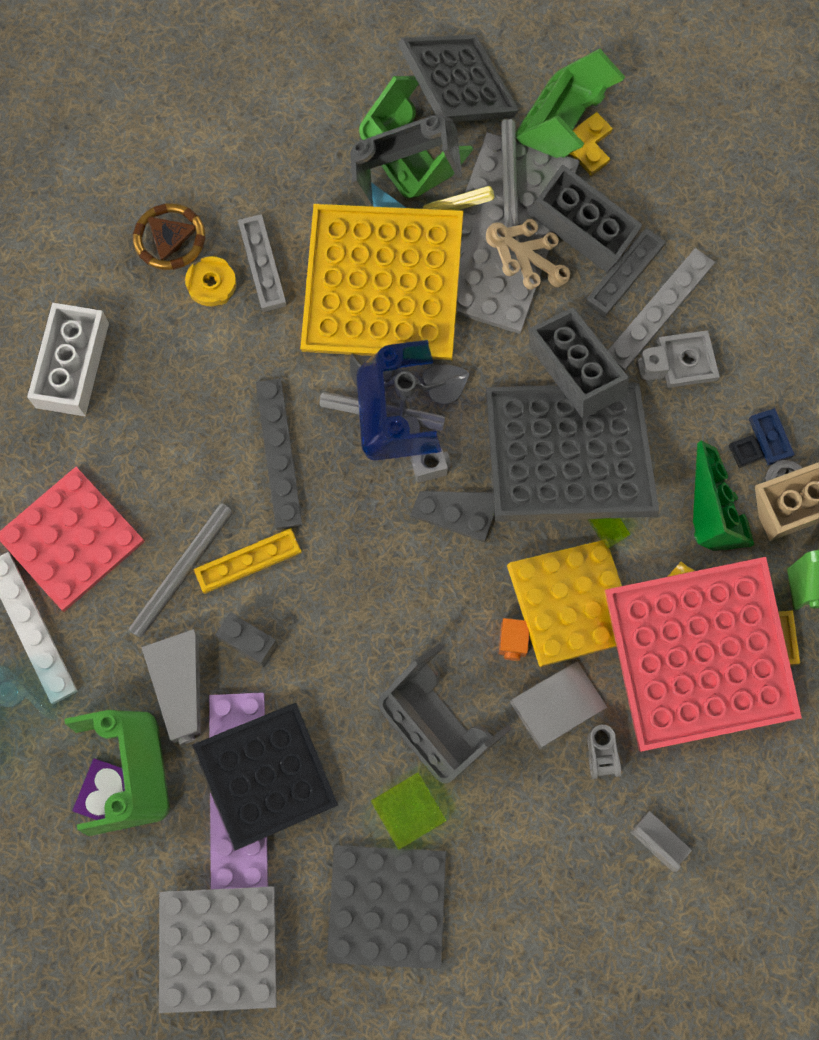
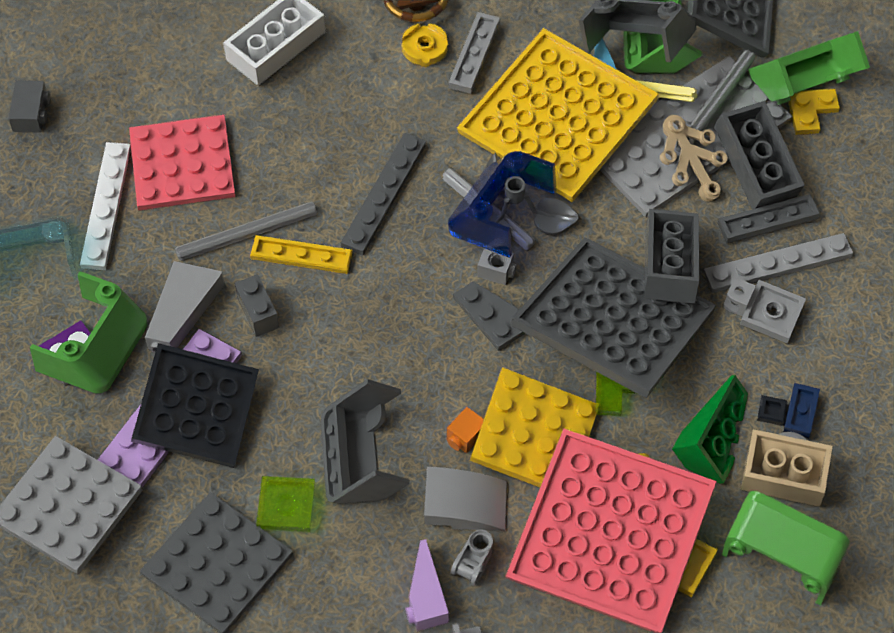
camera: 35 degrees right, 15 degrees down
(588, 815) = (426, 597): none -> lavender slope

